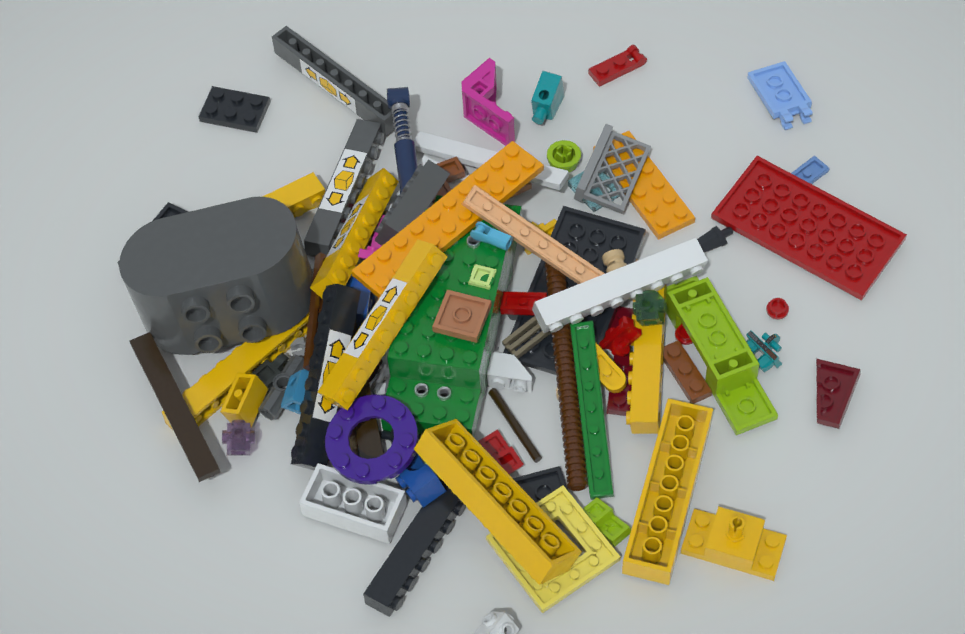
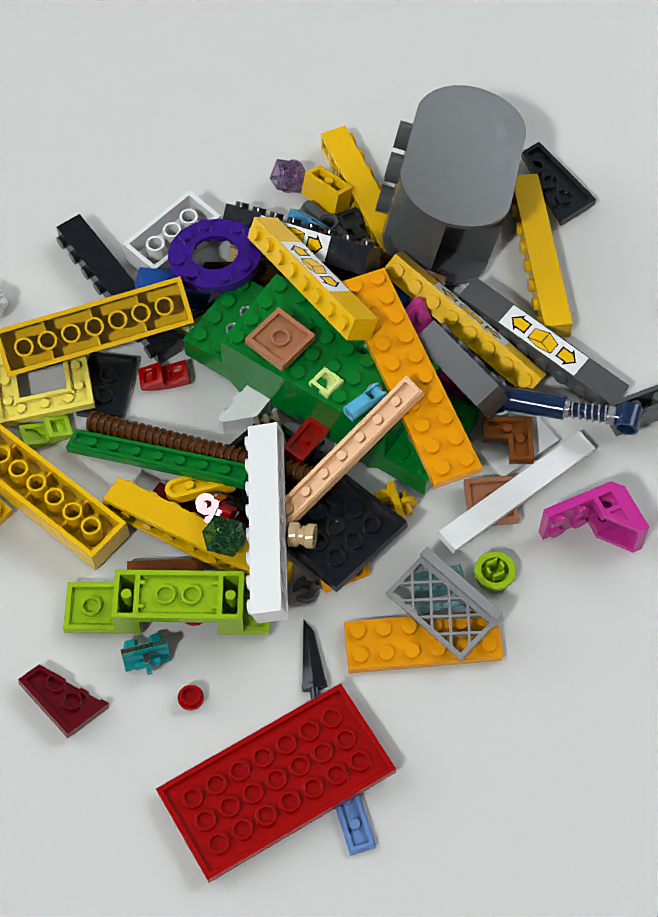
camera: 110 degrees right, 5 degrees up
(175, 407) = (327, 133): dark brown tile -> none
(514, 424) = (188, 400): dark brown bar -> none
(547, 97) = (582, 584): teal torso -> none
(617, 66) = (610, 689): red plate -> none
(781, 93) = (487, 855): light blue tile -> none

